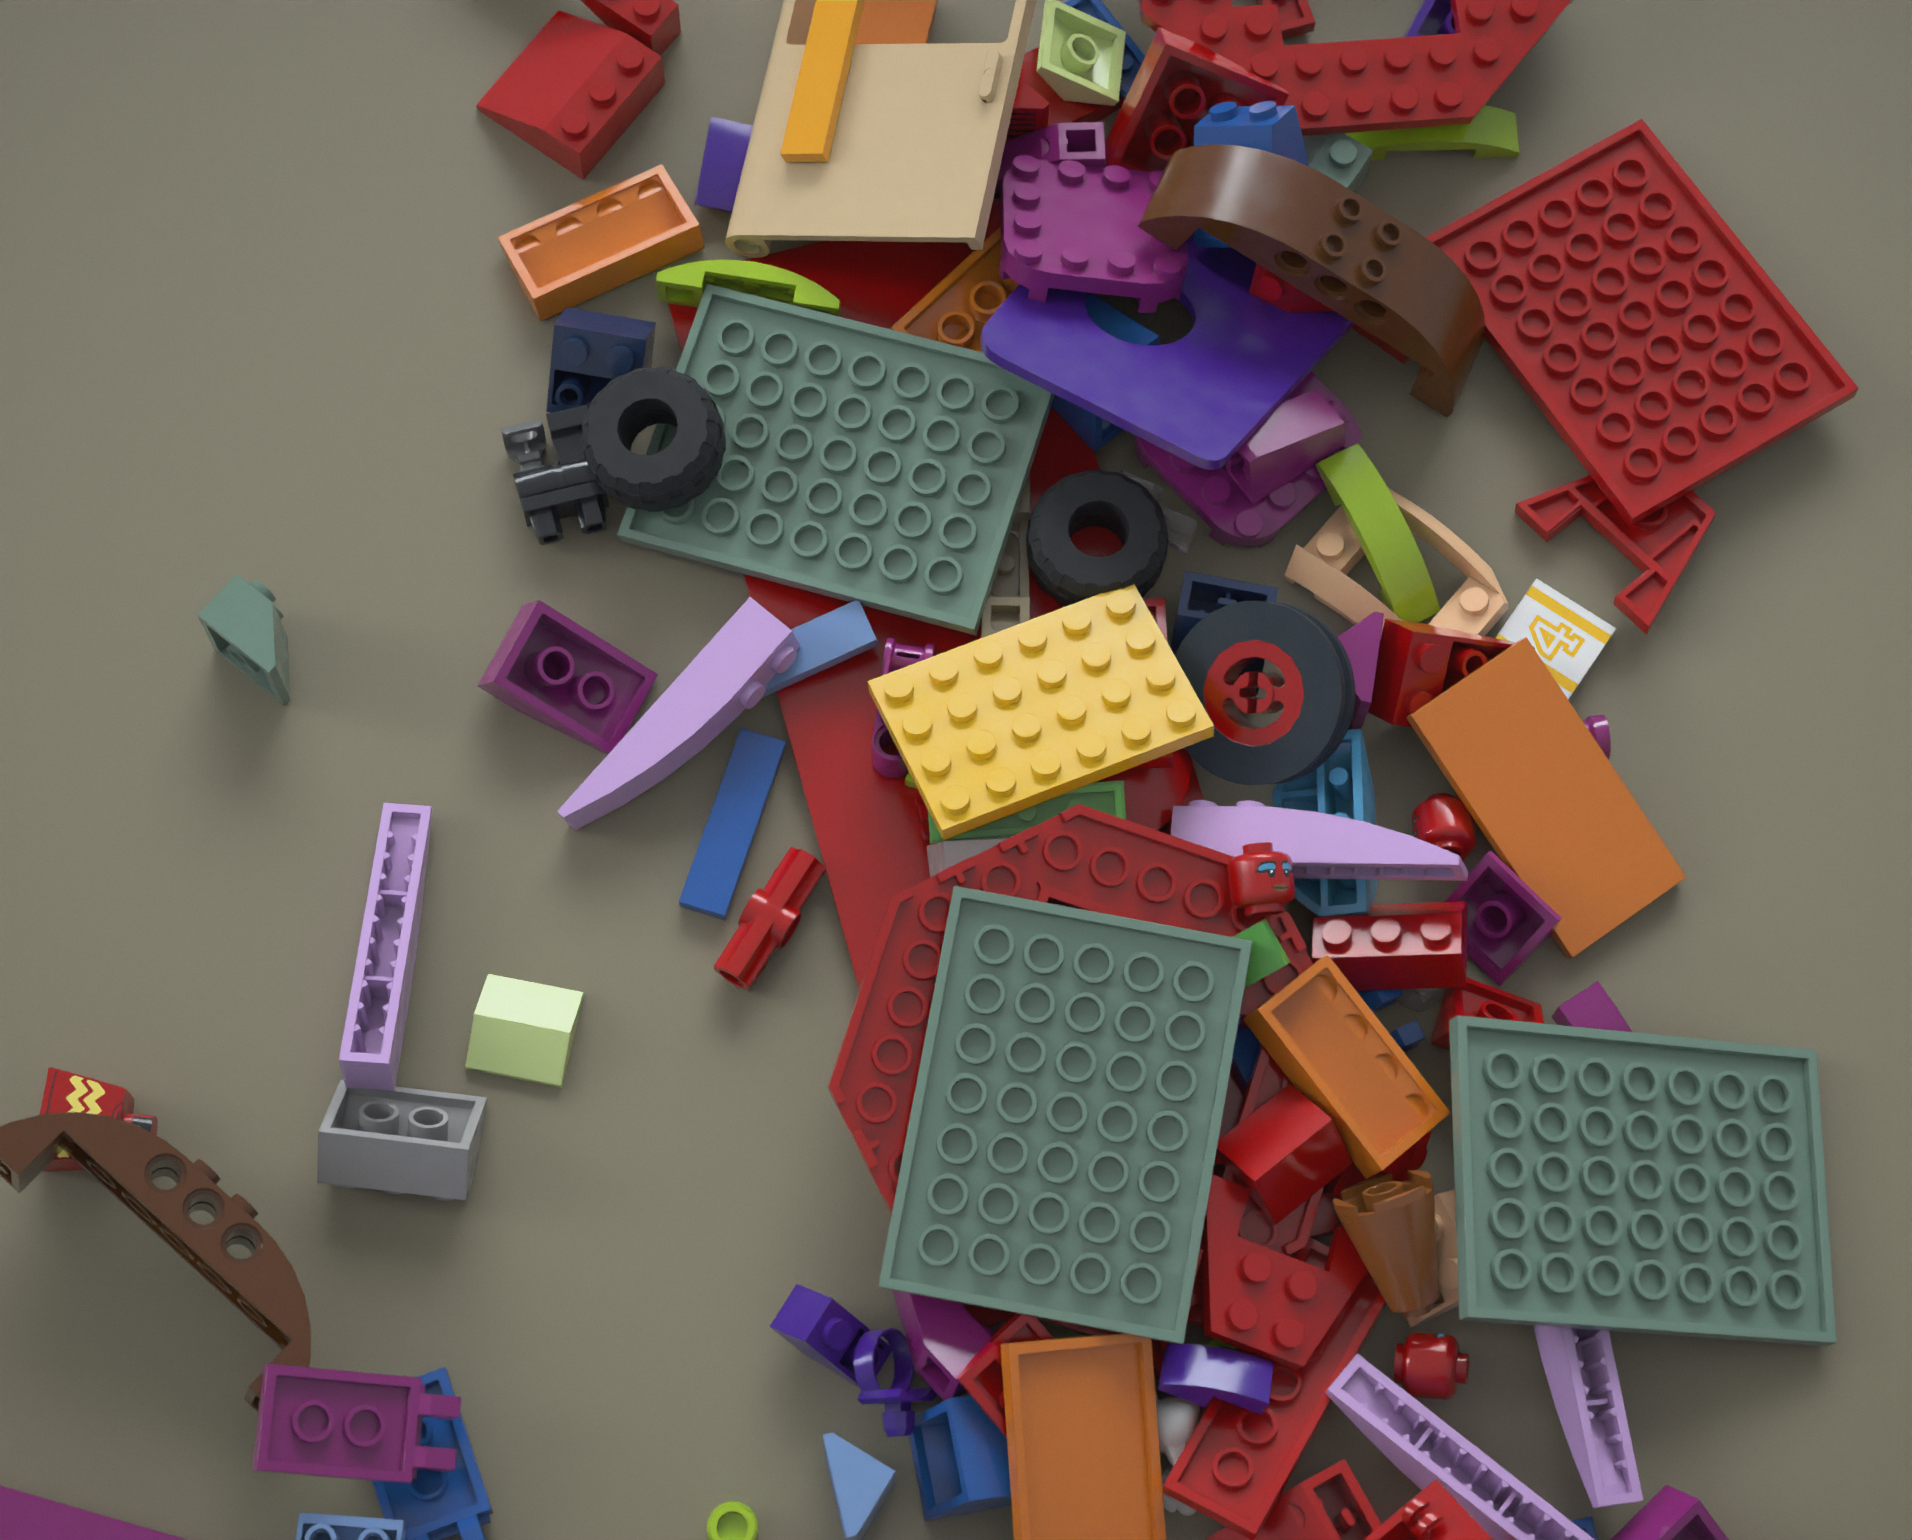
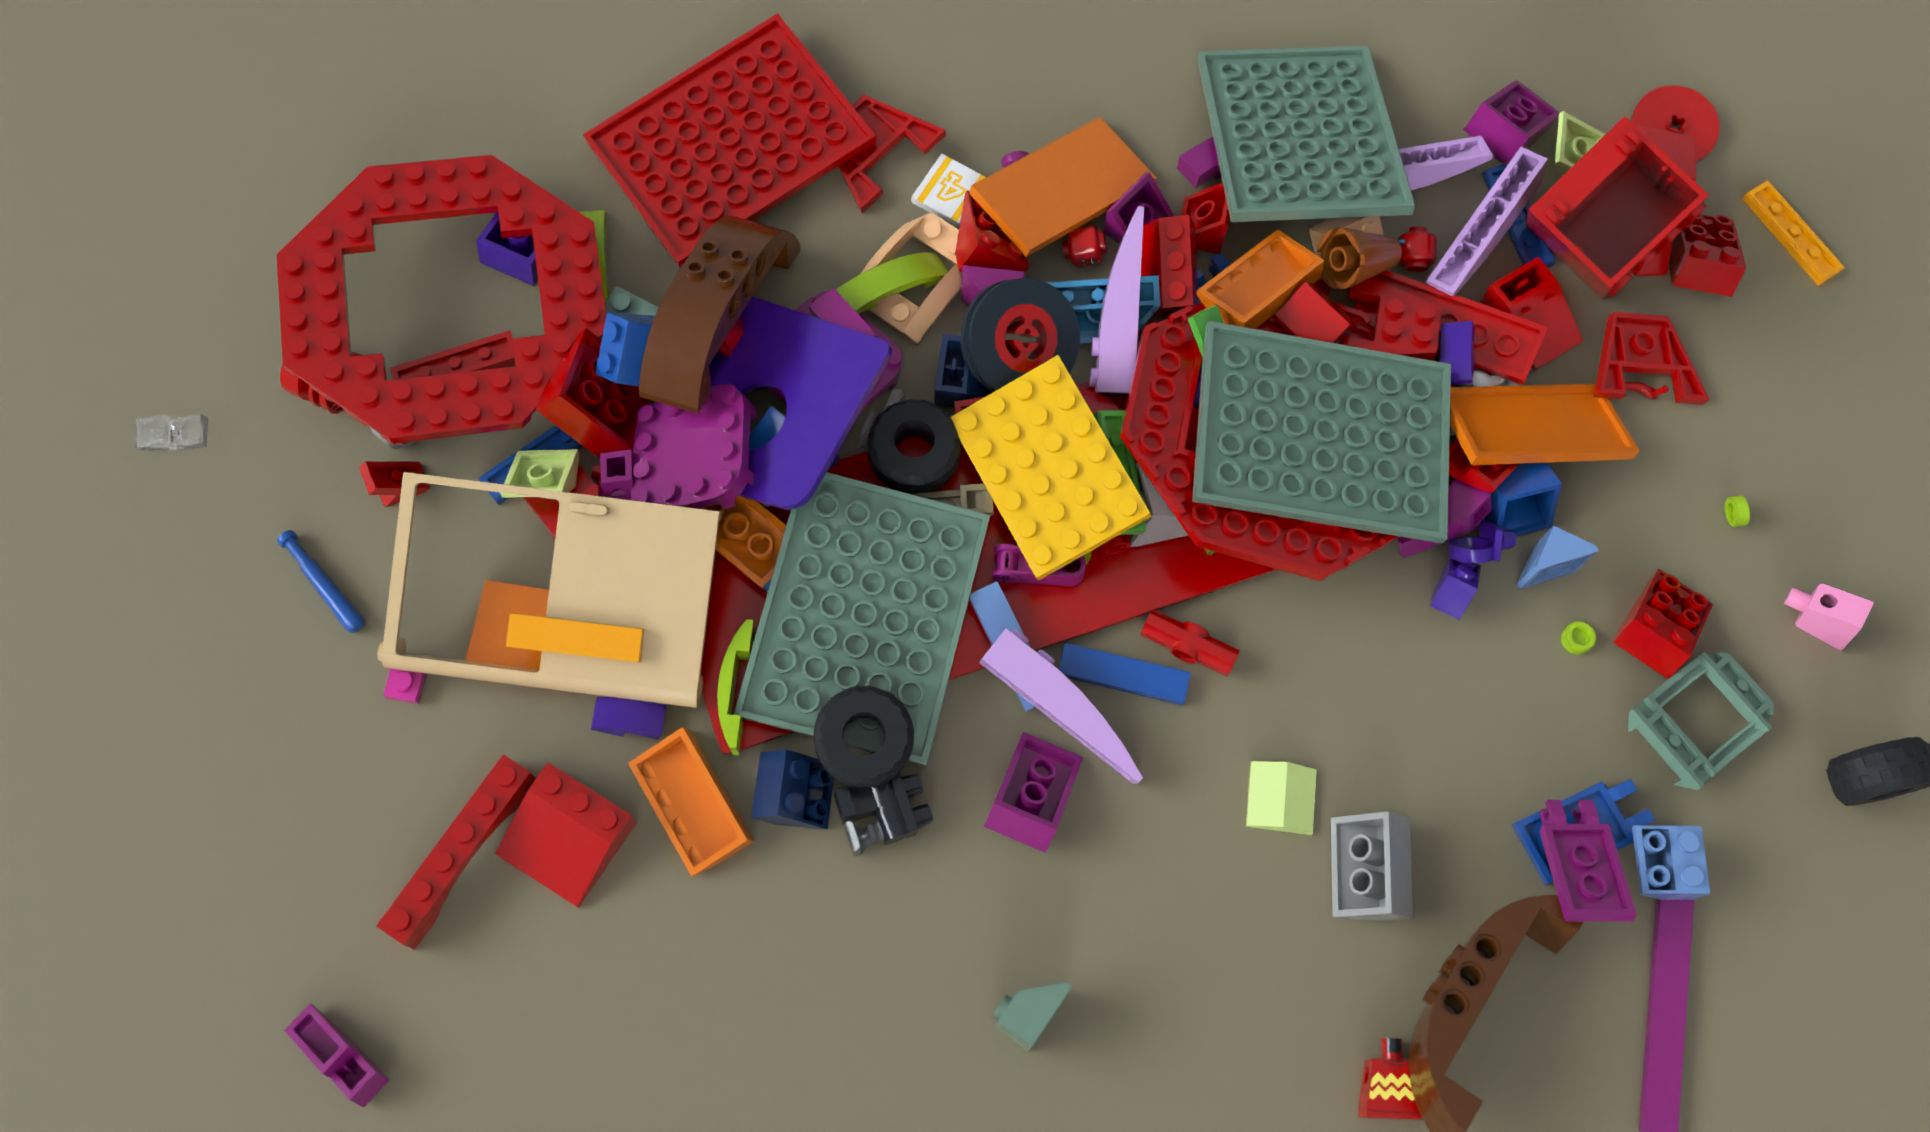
camera: 95 degrees left, 0 degrees up
(387, 950) = (1242, 890): lavender slope -> none
(1261, 880) = (1161, 322): red head -> none

